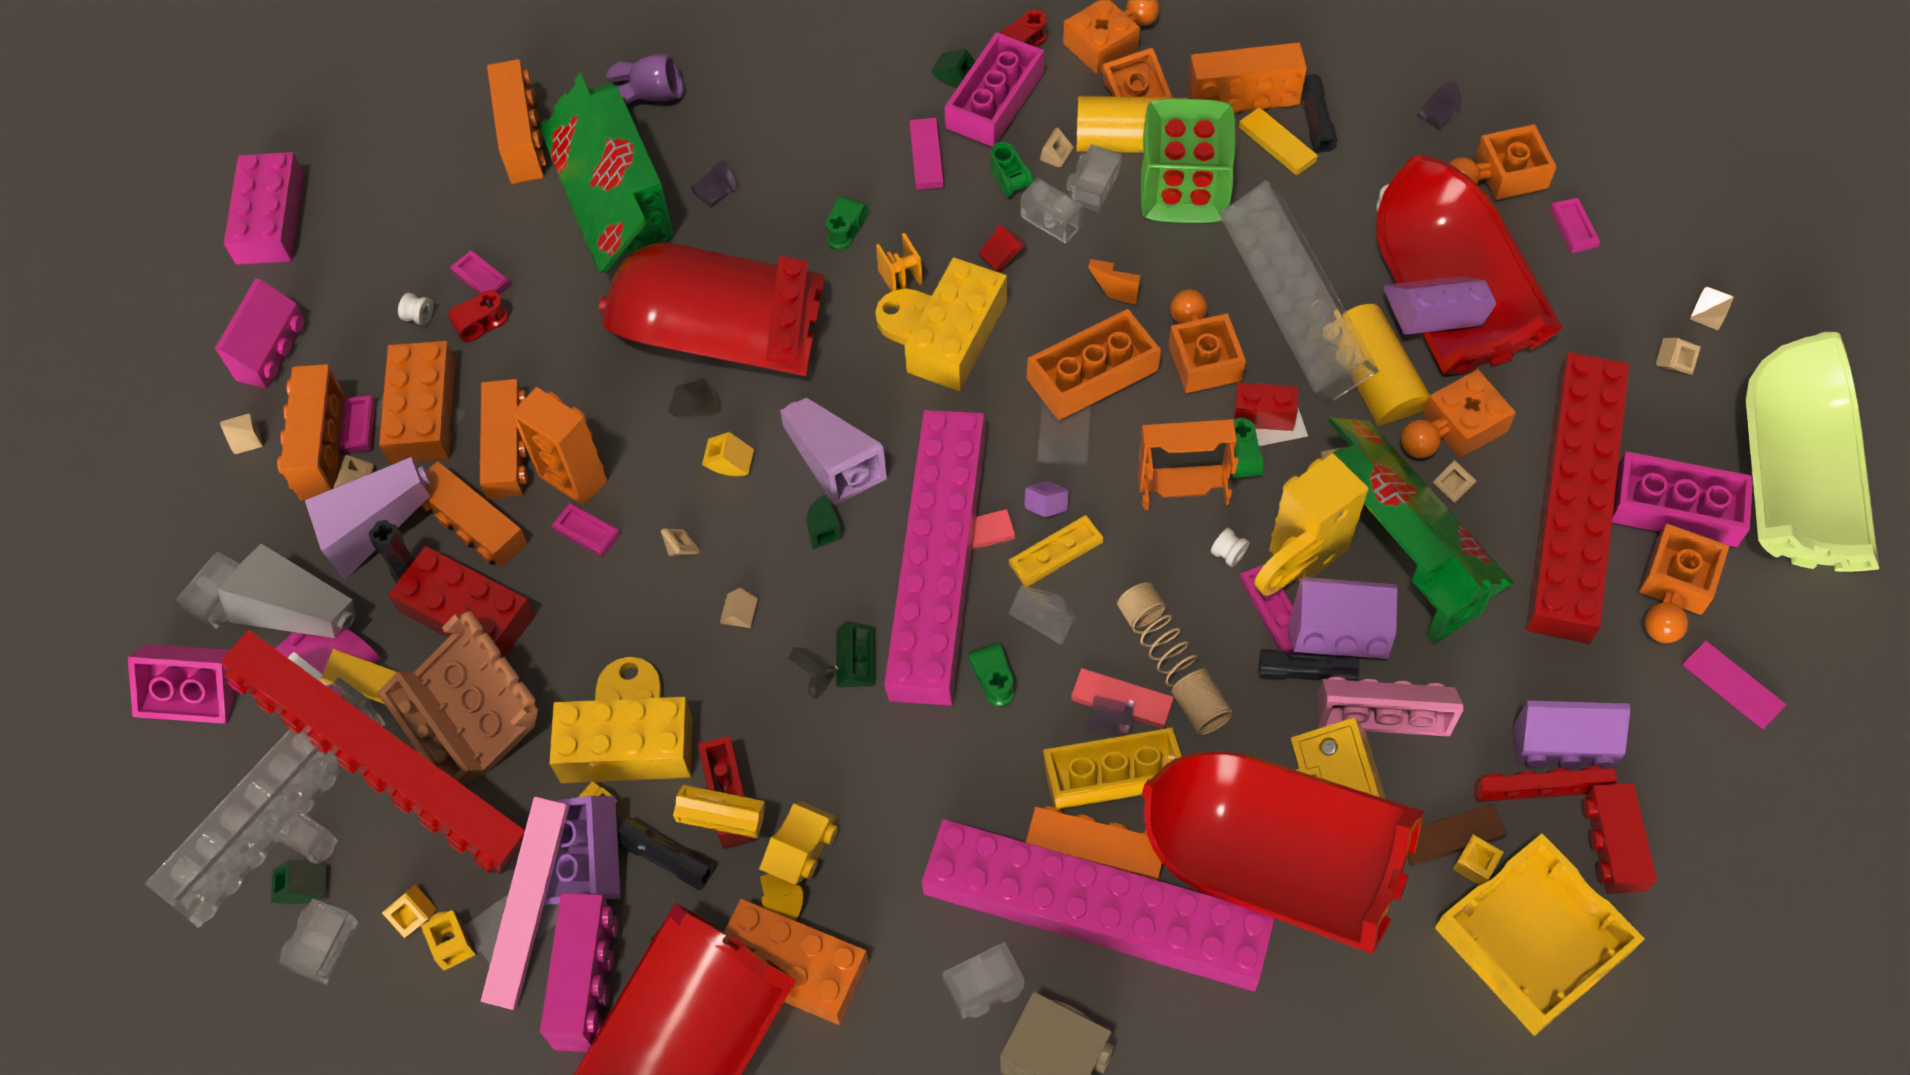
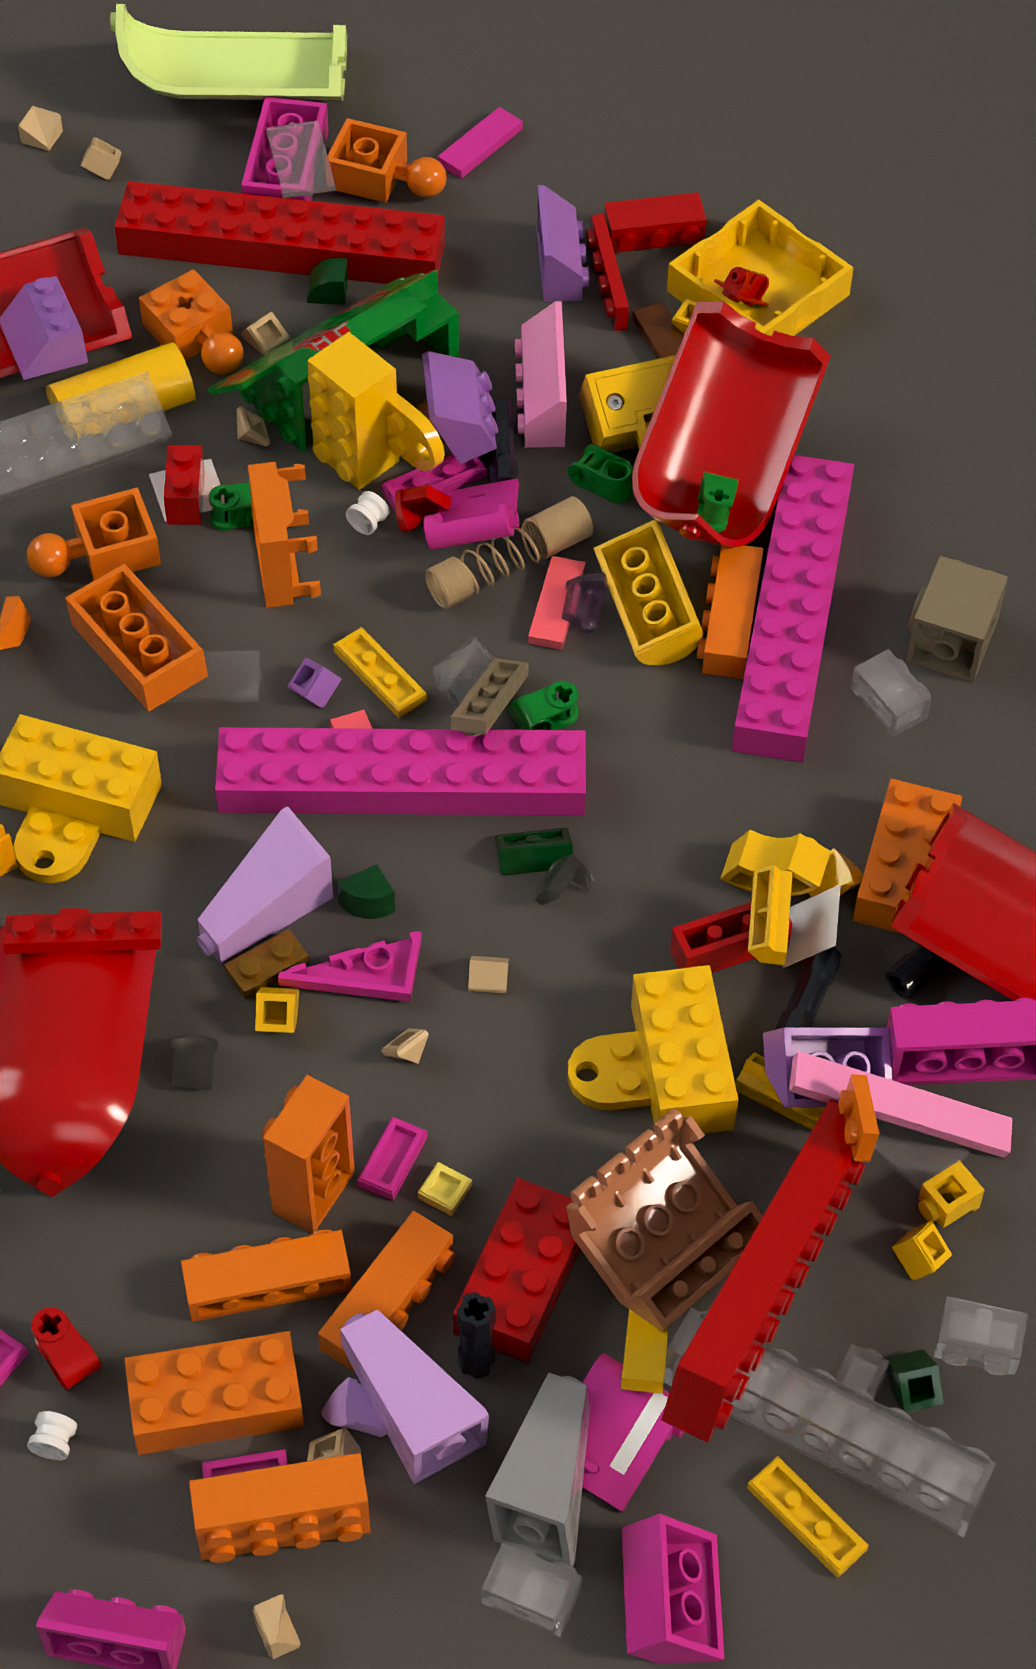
camera: 100 degrees left, 5 degrees down
(204, 796) = (807, 1516): none -> yellow tile
(470, 836) = (860, 1117): none -> orange plate
(551, 563) = (444, 1189): none -> light yellow tile
(727, 863) = (813, 925): none -> white sticker
(751, 524) = (369, 972): none -> dark pink wing
(775, 454) = (263, 963): none -> pearl gold plate
(999, 619) = (489, 696): none -> dark tan plate
(1212, 626) = (475, 515): none -> dark pink door
(1213, 833) = (716, 499): none -> green piece
(1233, 585) = (416, 503): none -> red tile
(1274, 744) = (604, 474): none -> green piece
(1510, 908) = (745, 286): none -> red hinge
(1520, 535) = (328, 282): none -> dark green brick
(1663, 501) = (300, 159): none -> clear piece

